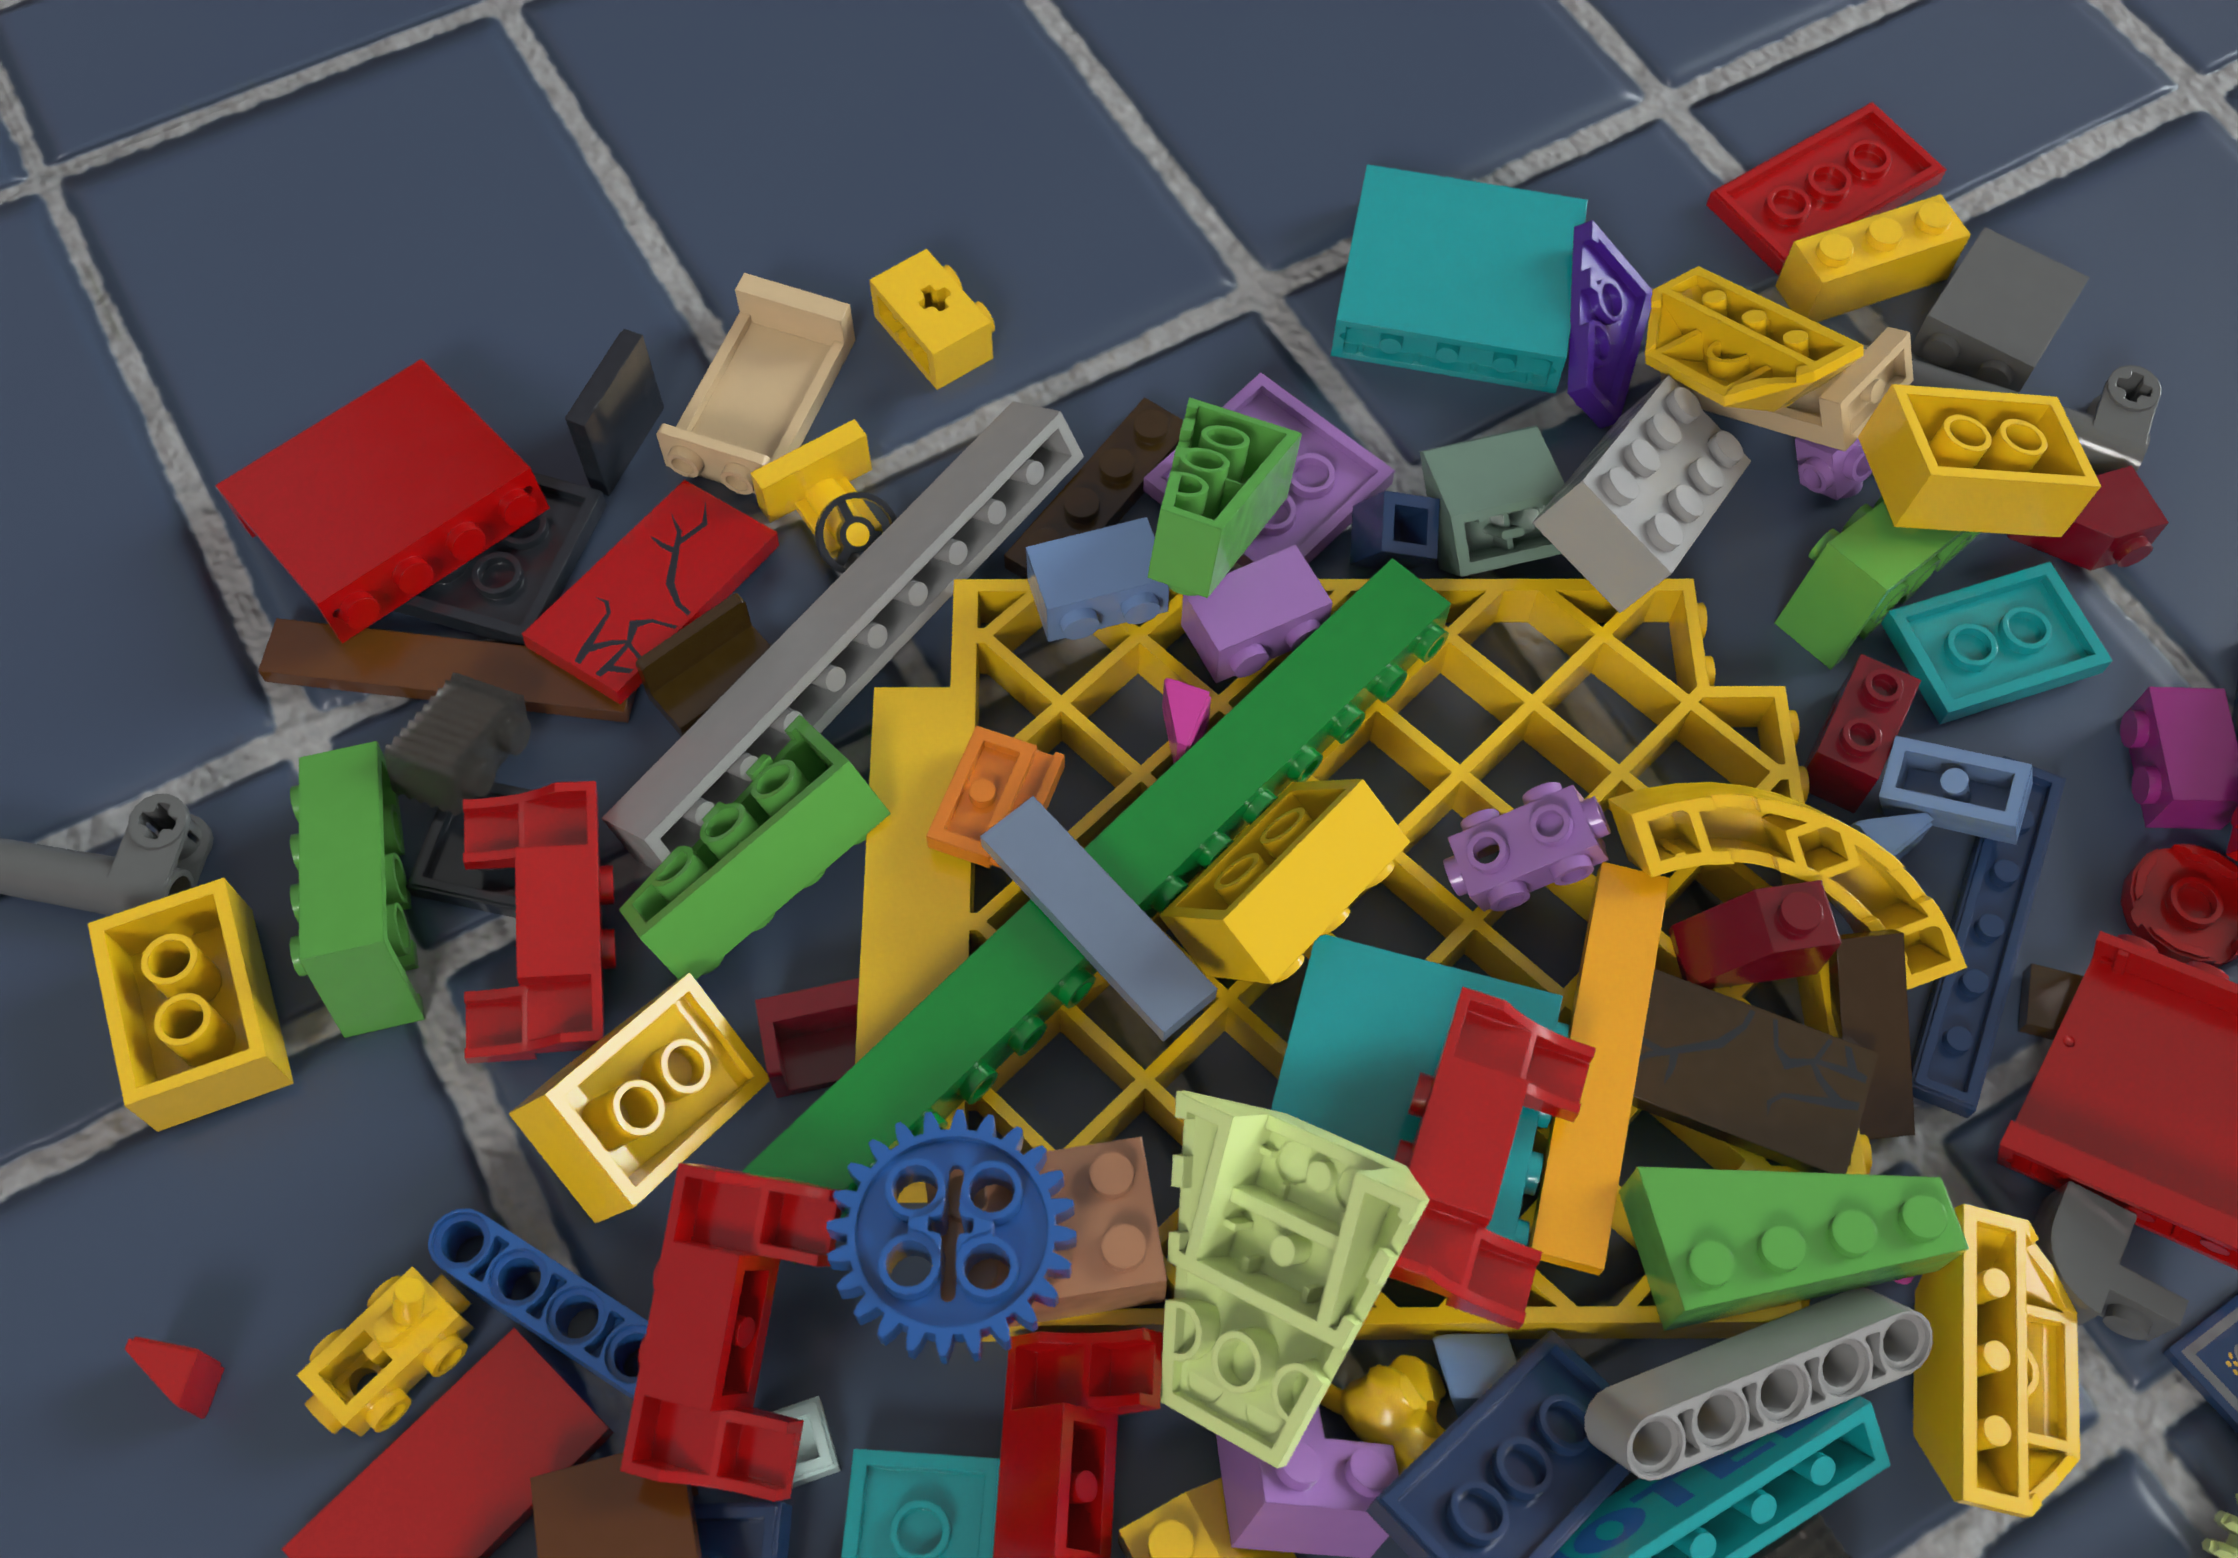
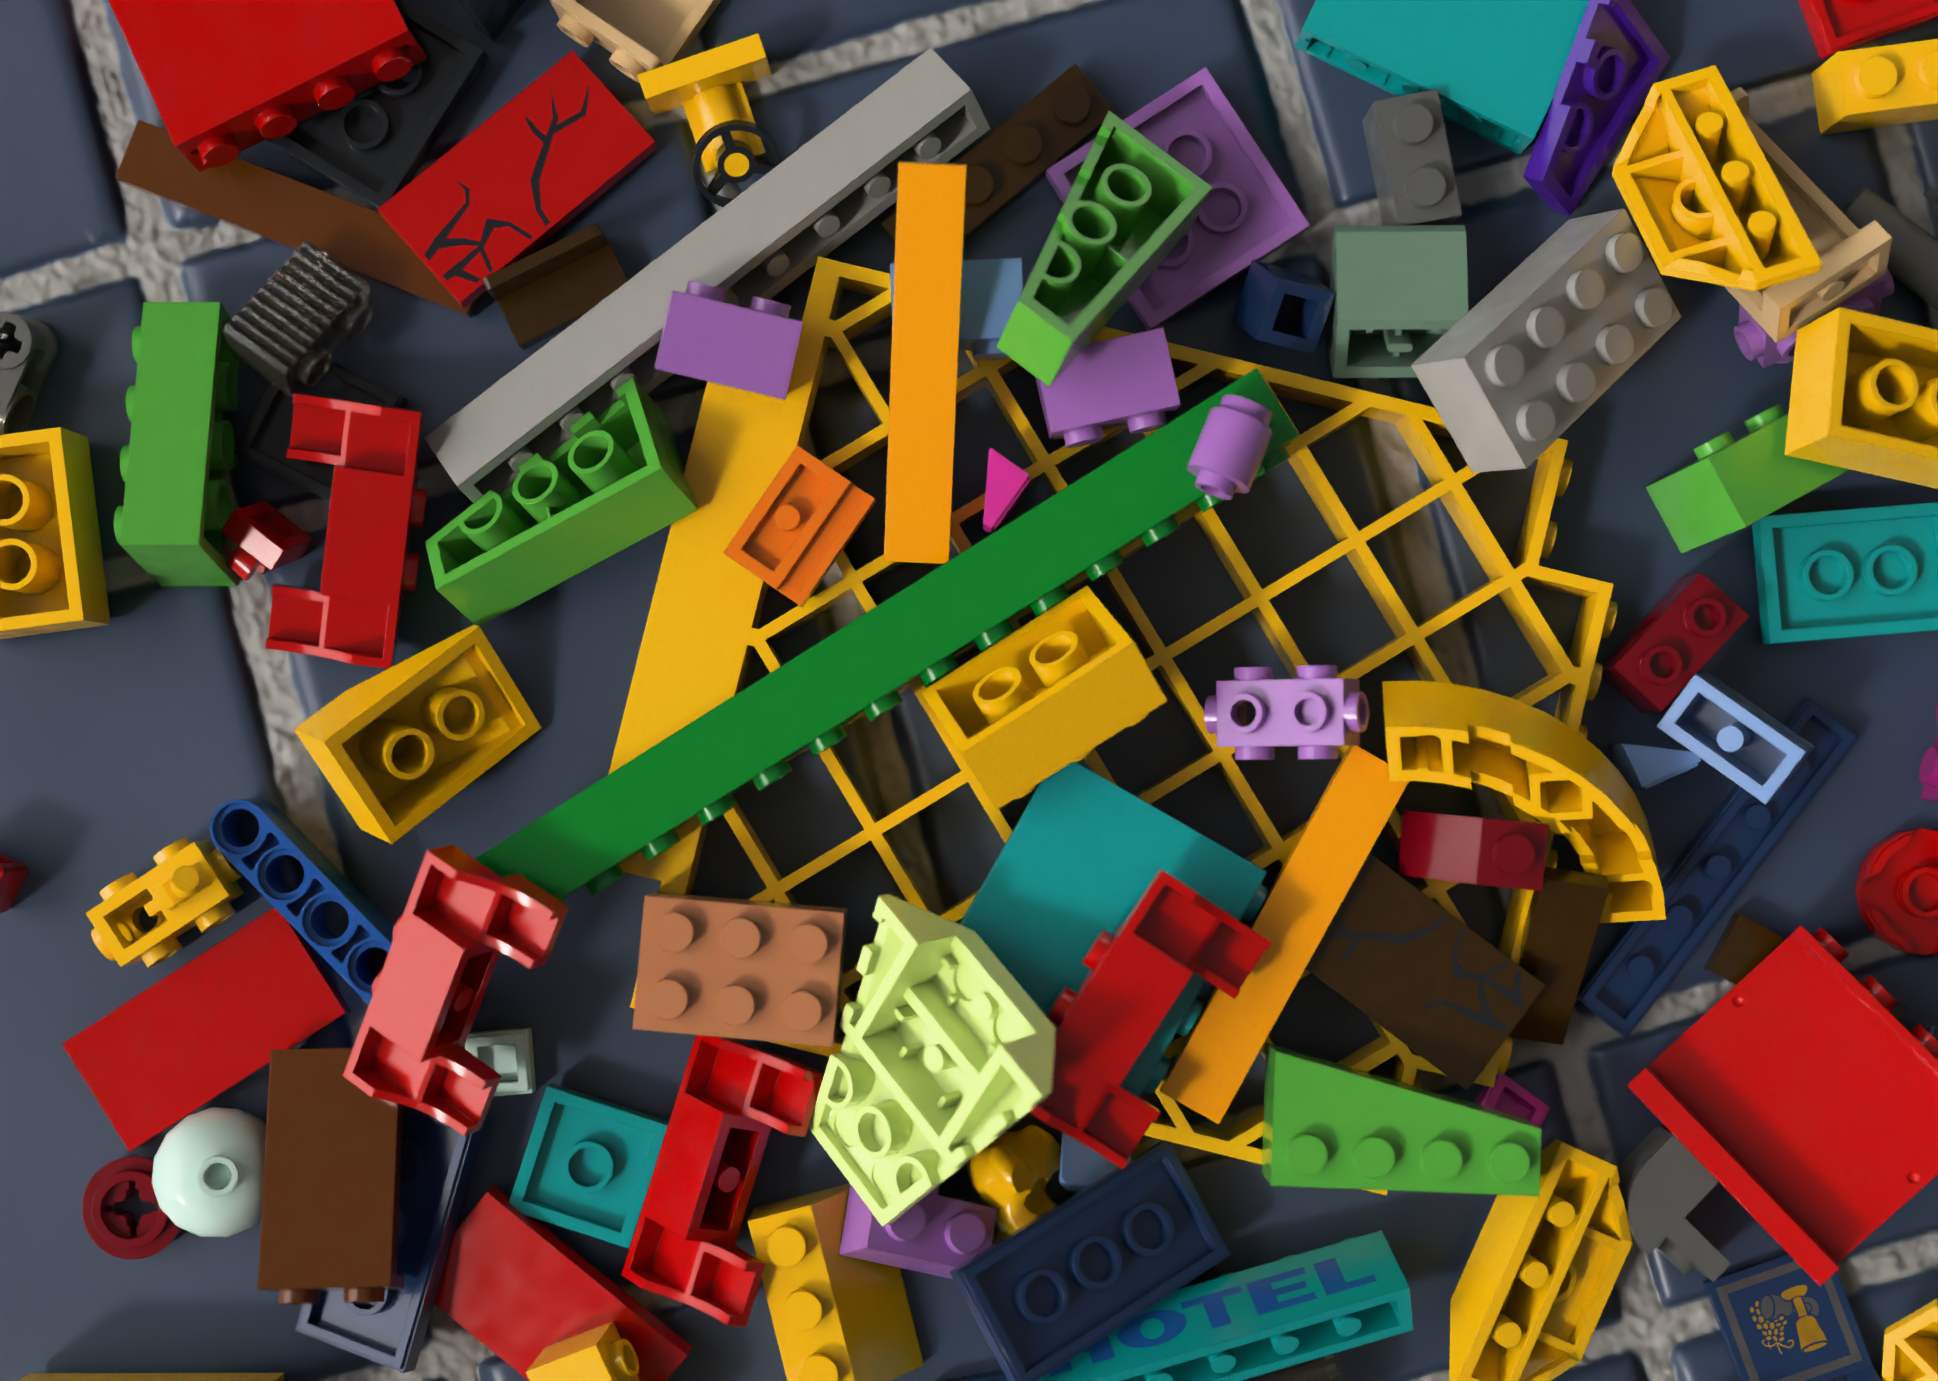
camera: 20 degrees right, 25 degrees up
(447, 960) = (263, 539): none -> red tile
(809, 1036) = (580, 704): dark red panel -> none
(885, 1232) = (593, 956): blue gear -> none
(888, 649) = (729, 342): none -> medium lavender brick
(1082, 620) = (924, 361): none -> light orange tile
(1099, 918) = (857, 691): sand blue tile -> none
(1393, 615) = (1231, 447): none -> medium lavender brick
(1462, 394) = (1411, 161): none -> dark grey brick
(1757, 1382) = (1319, 1245): light grey beam -> none

